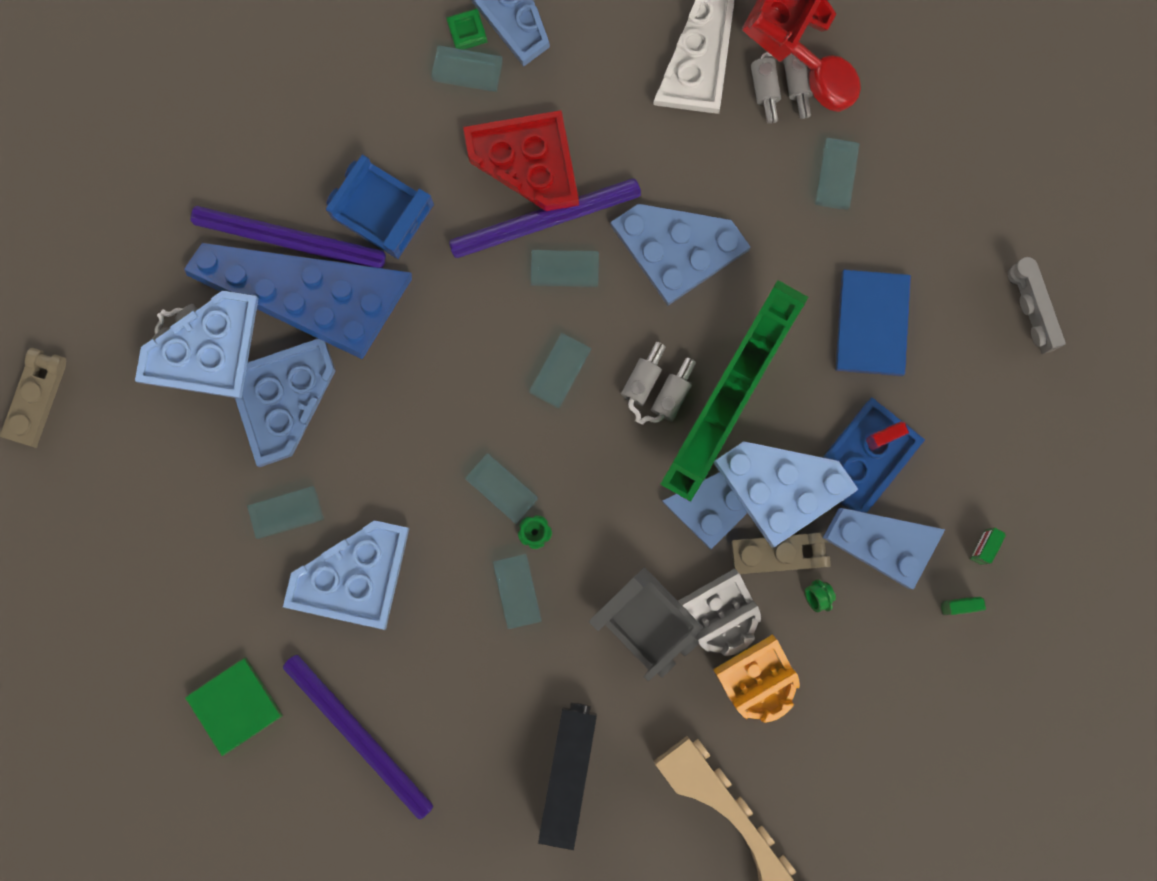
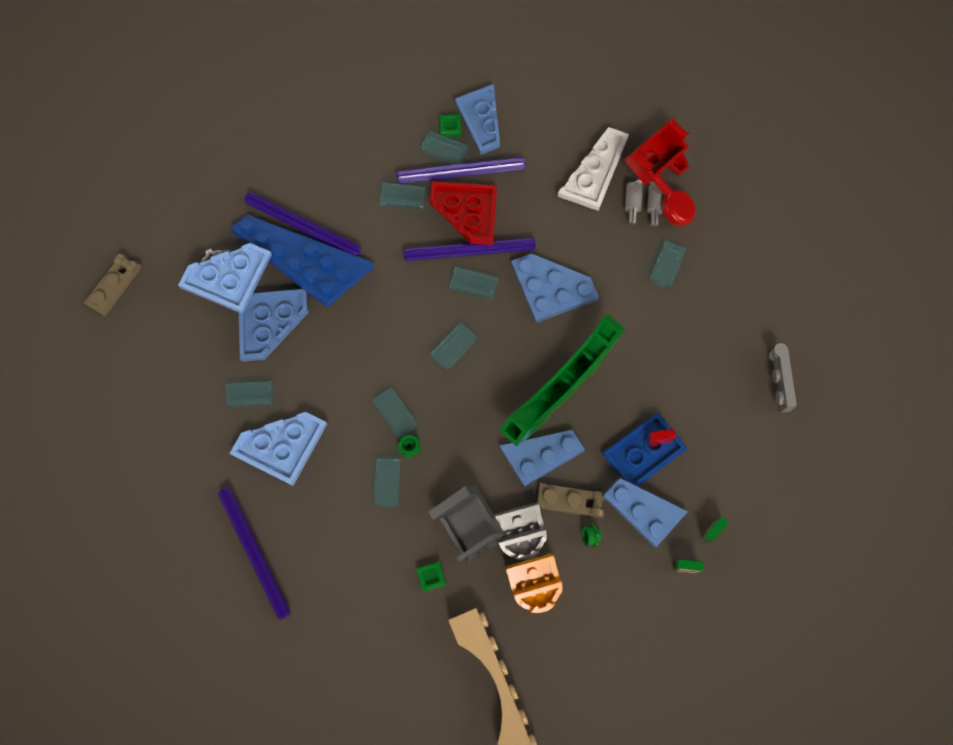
camera: 15 degrees right, 10 degrees down
(234, 706) = (178, 512): green tile -> none
(378, 207) = (364, 218): blue panel -> none
(424, 158) = (402, 196): none -> clear light blue tile
(500, 97) = (460, 170): none -> dark purple axle
(568, 777) = (386, 613): black slope -> none
(613, 707) = (431, 576): none -> green tile
(671, 395) = (523, 378): light grey piece -> none
(783, 487) = (583, 455): light blue plate -> none
(873, 322) = (669, 364): blue tile -> none

